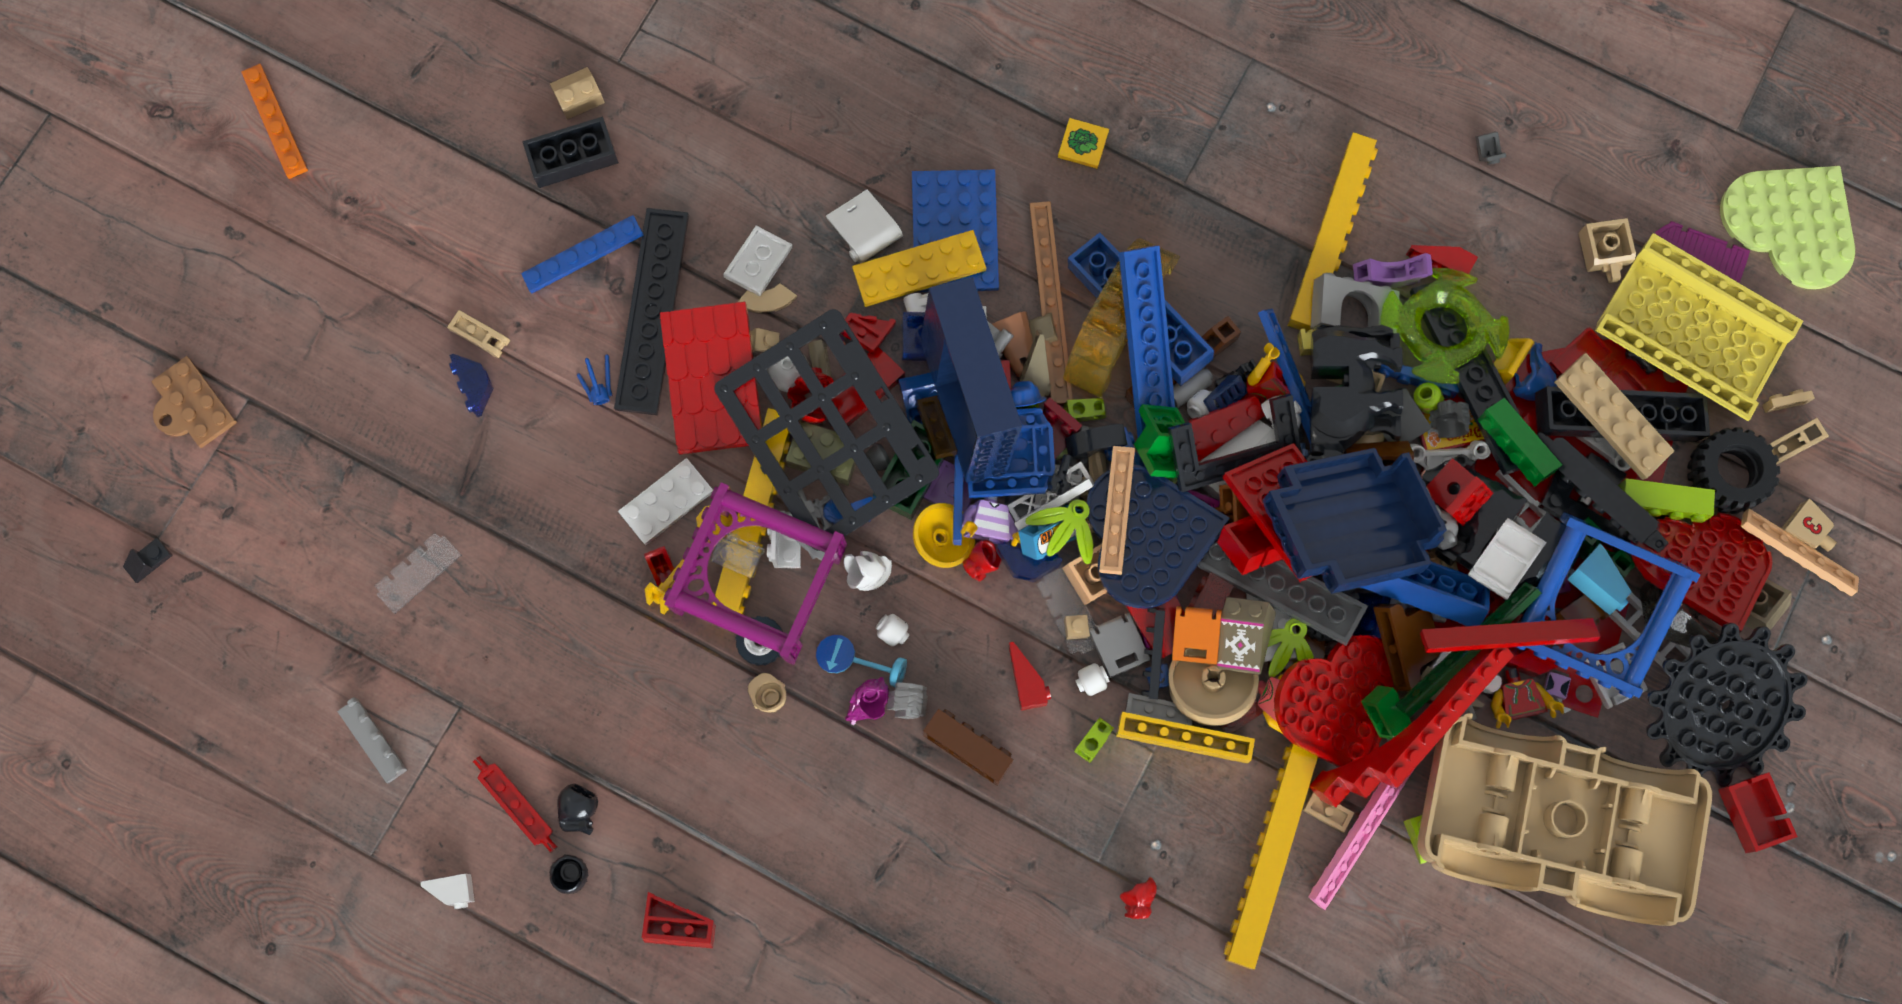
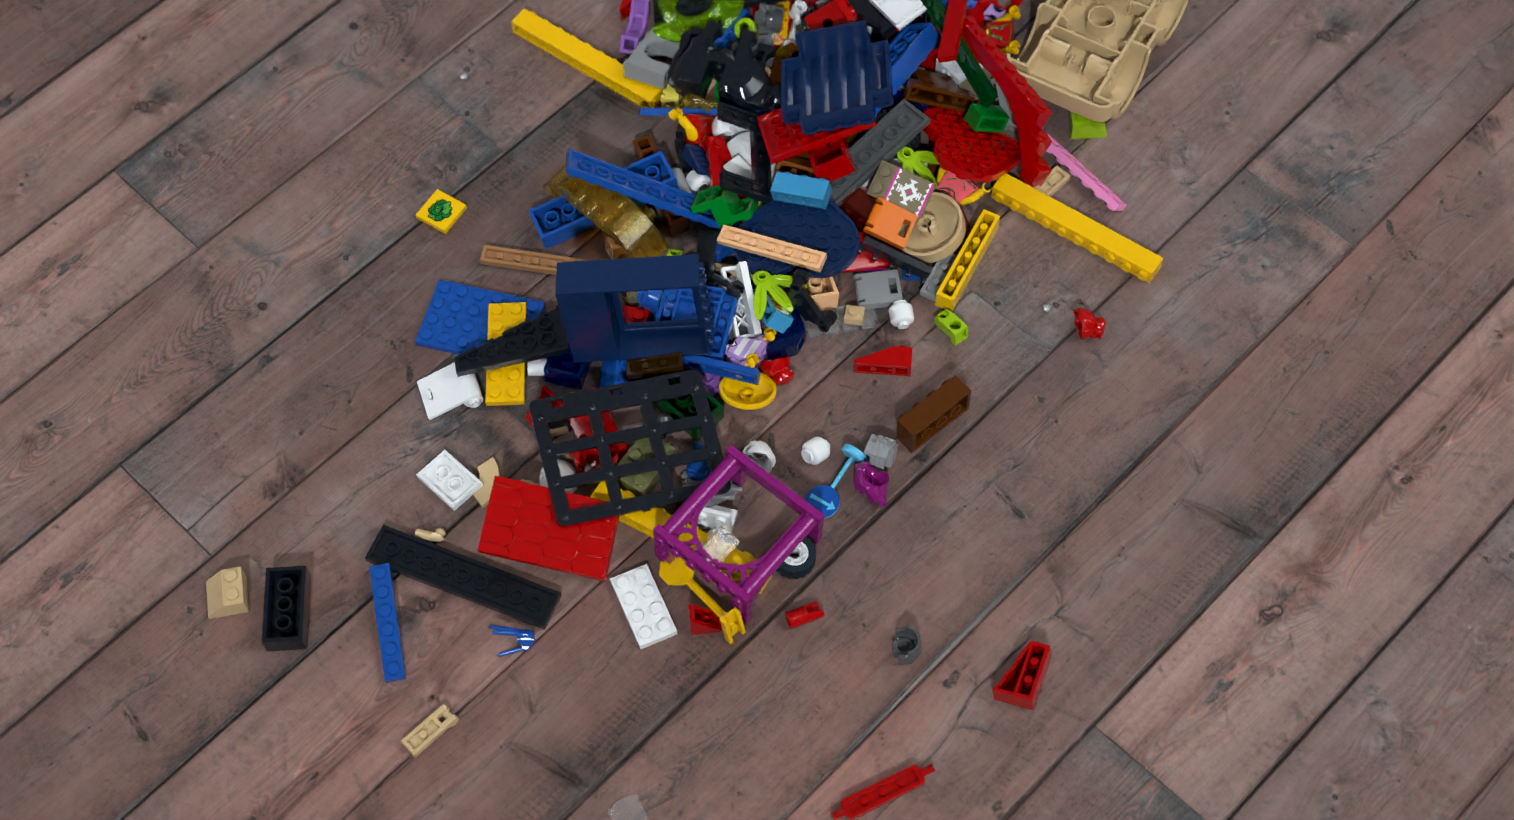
camera: 70 degrees left, 15 degrees down
(473, 382) = (474, 744): clear blue slope -> none
(568, 874) = (959, 757): black hair -> none
(575, 808) = (902, 739): black piece -> none
(683, 788) = (907, 645): none -> dark grey hair
(689, 263) = (436, 536): none -> tan arm
(691, 666) = (803, 615): none -> red hinge
(767, 693) = (842, 558): tan hat -> none
(911, 263) = (523, 343): none -> black wing
(1059, 573) = (806, 305): none -> black plate
(1201, 521) = (801, 190): none -> dark azure brick
(1222, 444) = (738, 166): none -> white sticker
(1299, 366) = (693, 101): none -> clear yellow helmet

